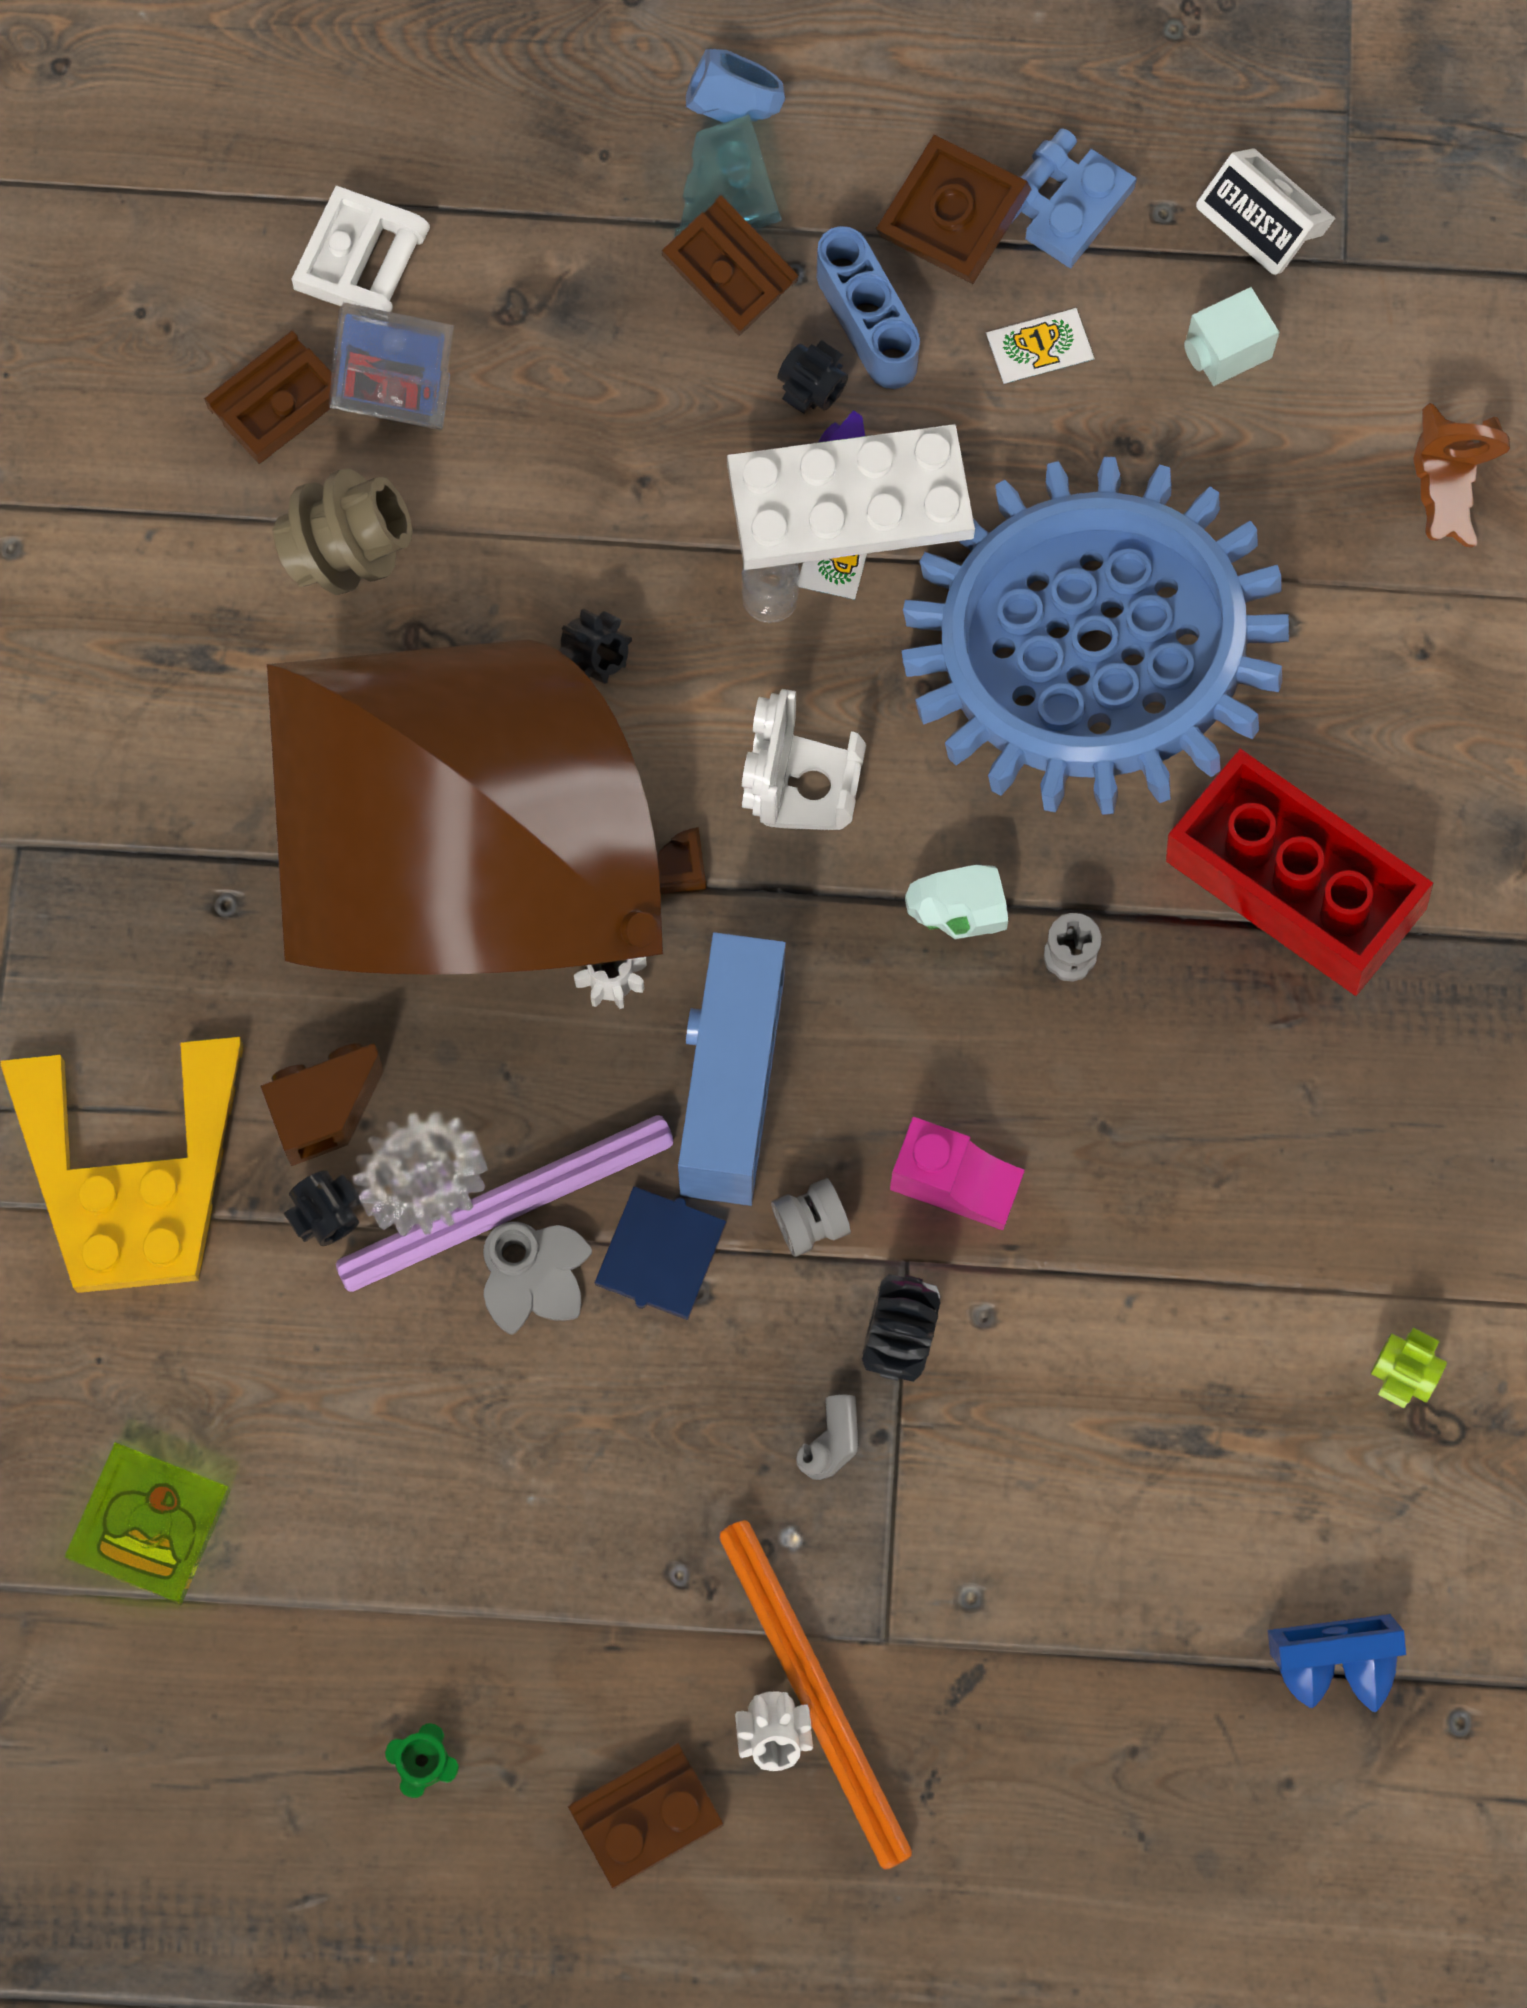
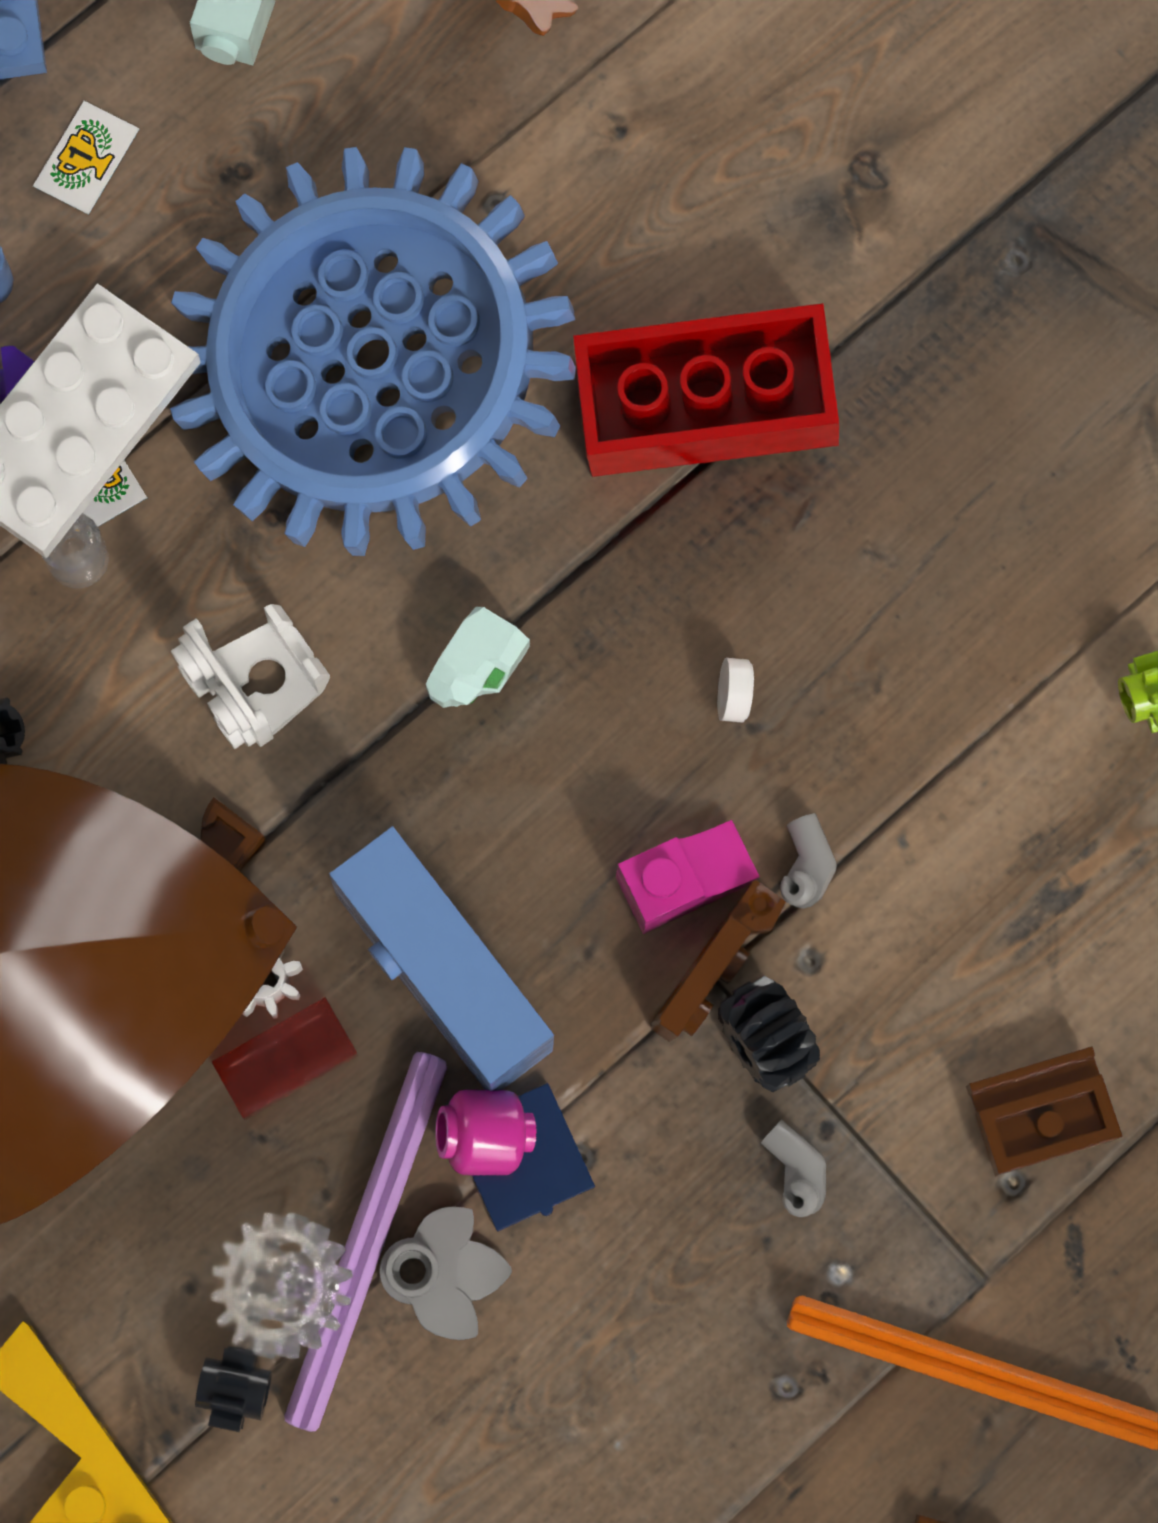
camera: 50 degrees left, 5 degrees up
(322, 1104) = (146, 1309): reddish brown slope -> none
(572, 1036) = (284, 1058): none -> clear red plate
(649, 1206) = (484, 1132): none -> dark pink head
(774, 1731) = (982, 1433): white gear -> none
(798, 1223) = (614, 1028): light grey wheel -> none
(920, 1249) = (720, 958): none -> reddish brown hinge
(1038, 1567) = (1044, 1111): none -> reddish brown plate
(1050, 1255) = (812, 868): none -> light grey arm
(1085, 937) = (591, 594): light grey bush -> none
(1115, 1087) = (735, 690): none -> white tile

